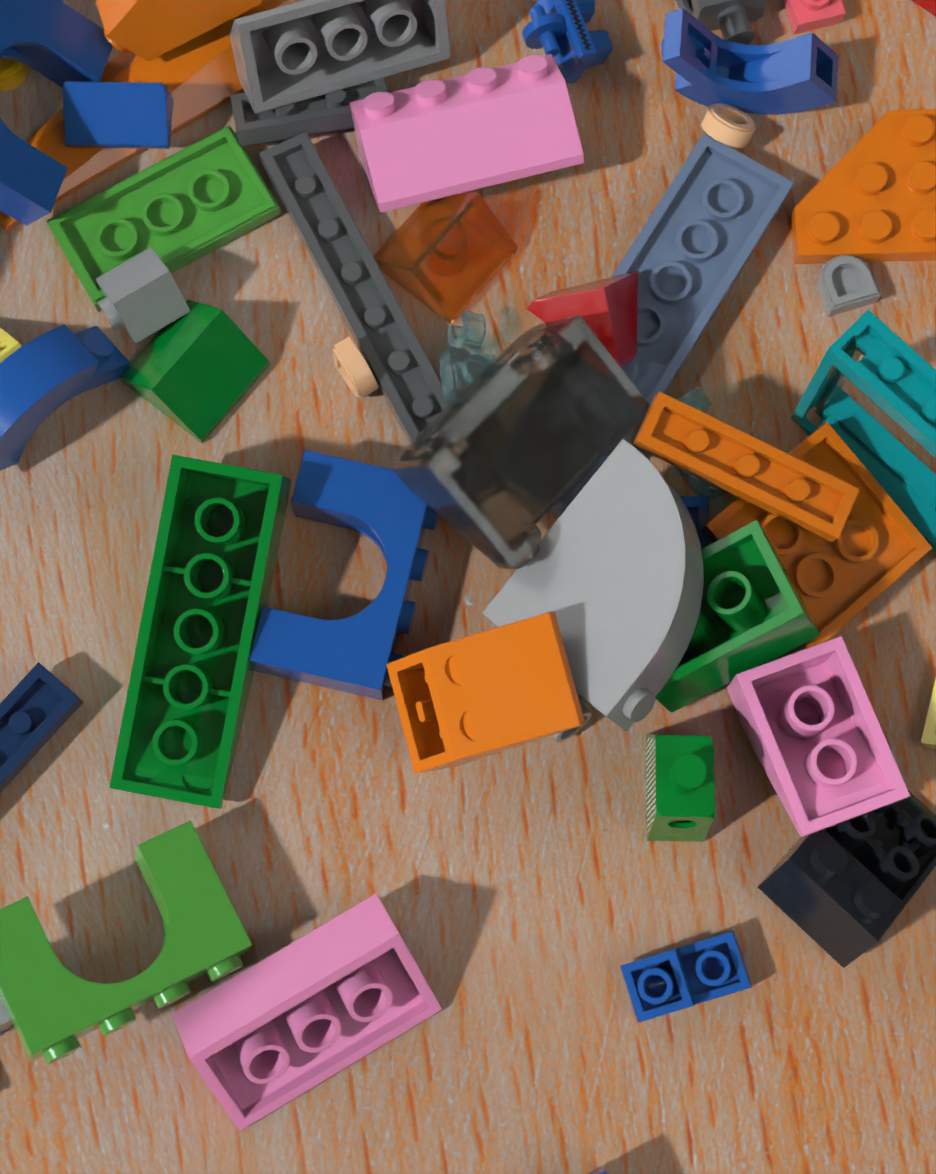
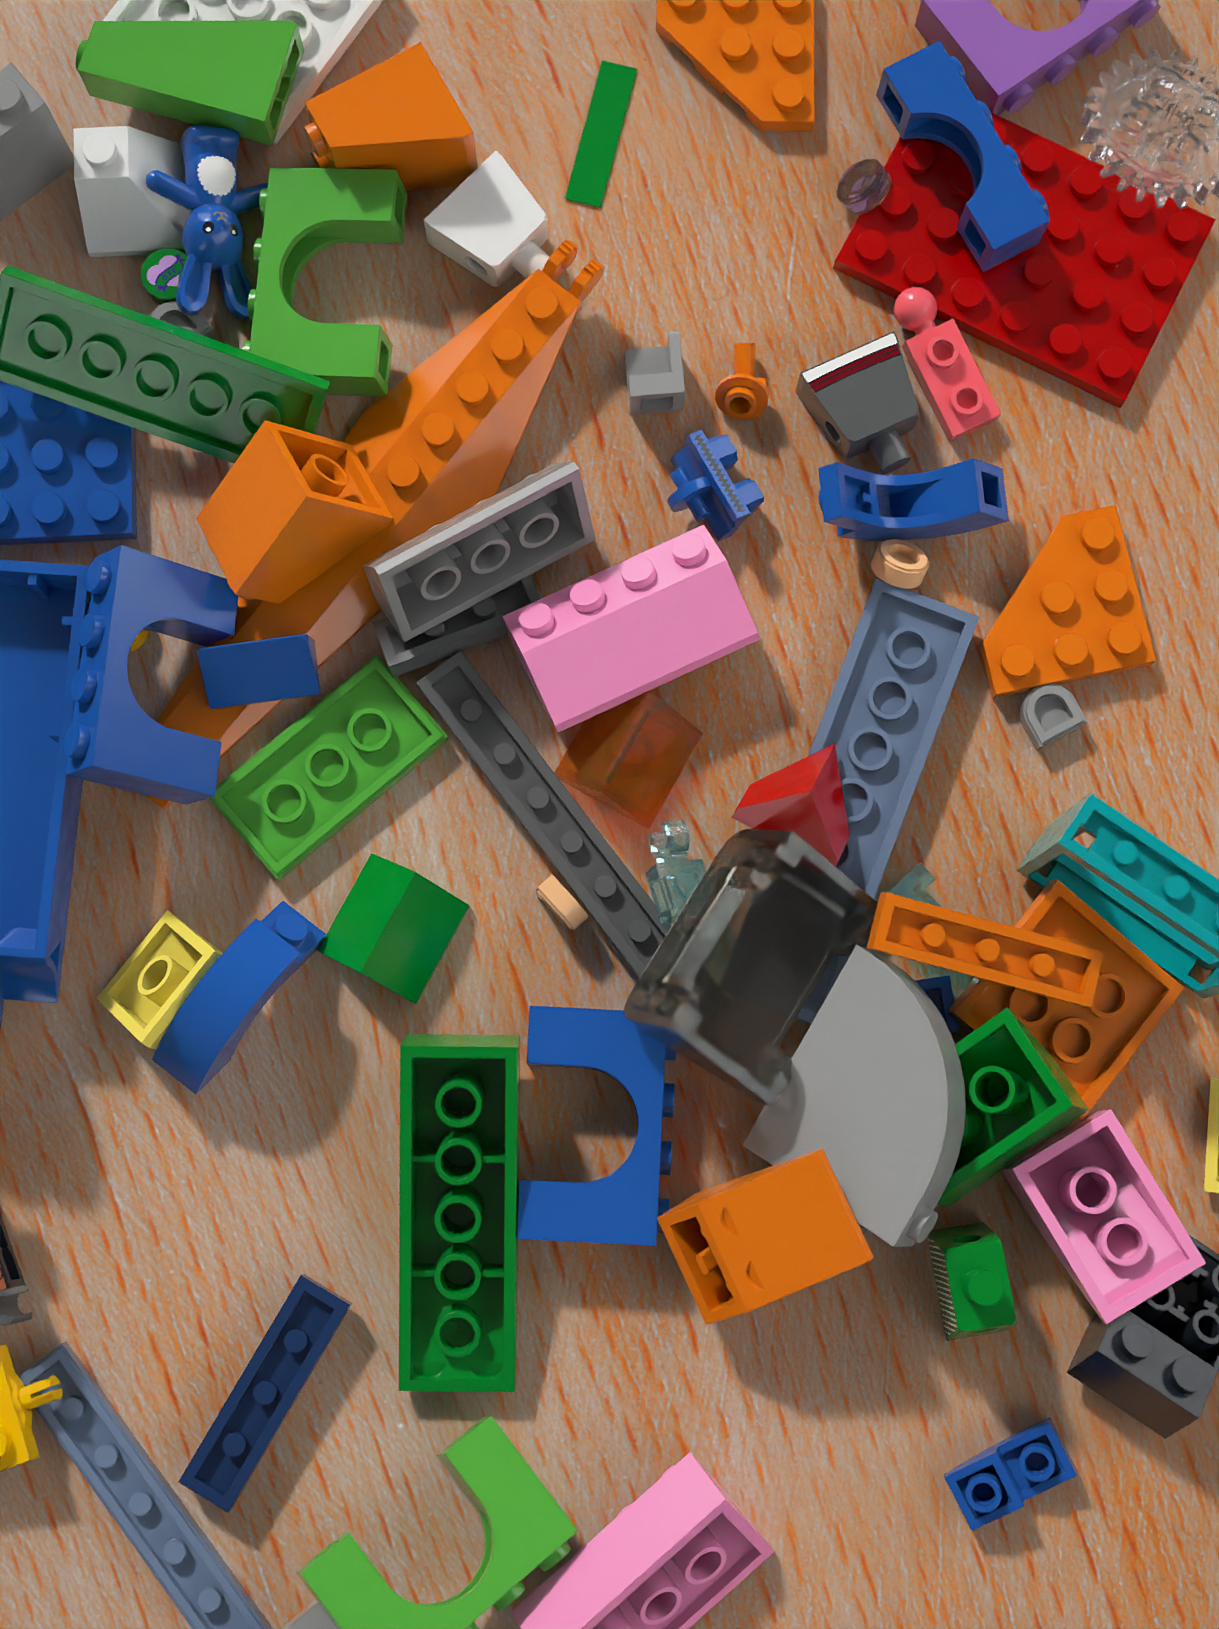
camera: 10 degrees left, 5 degrees up
(141, 296) = (325, 865): light grey brick -> none

